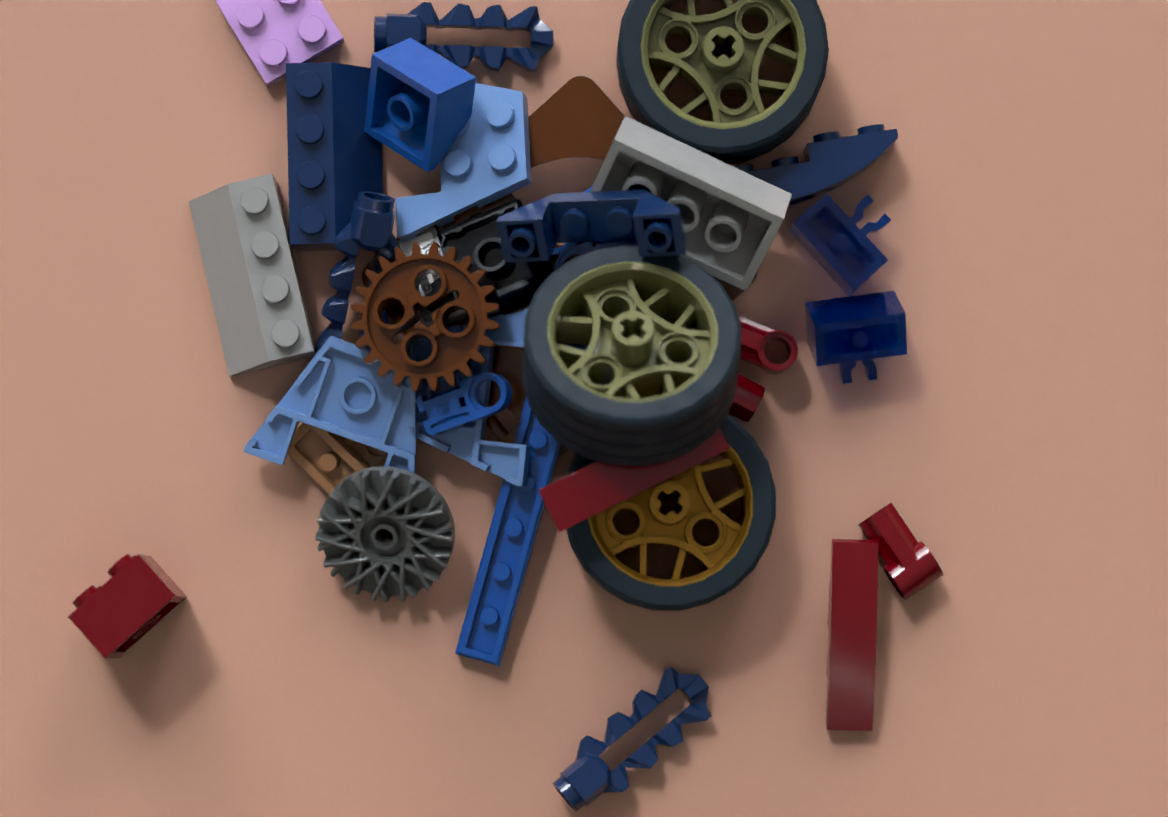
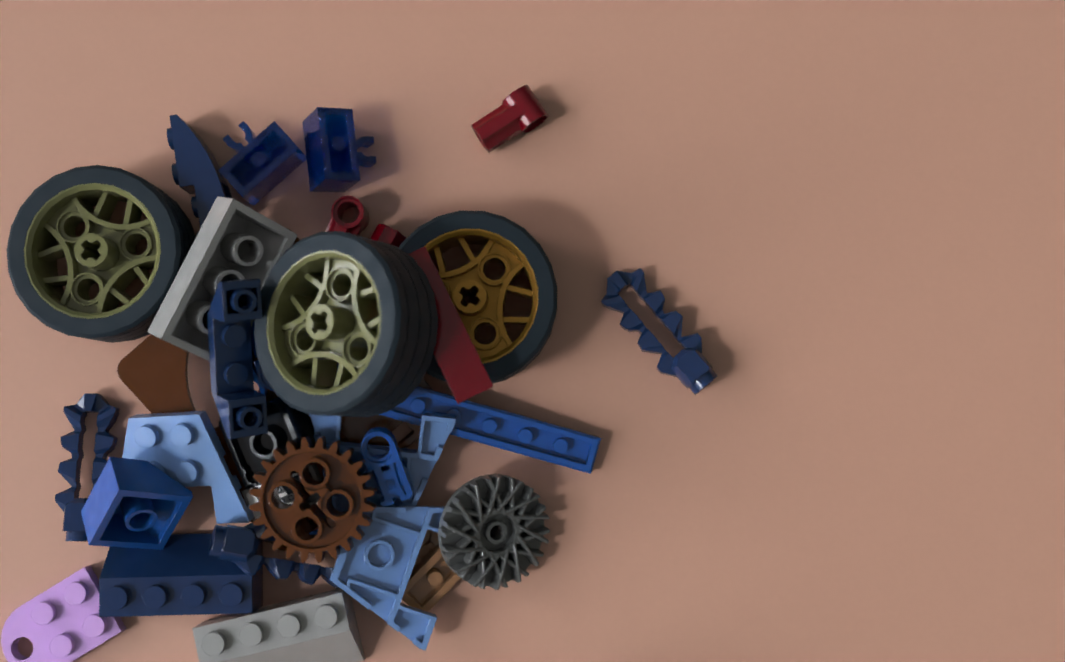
camera: 85 degrees left, 0 degrees up
(852, 634) = (575, 156): dark red slope -> none

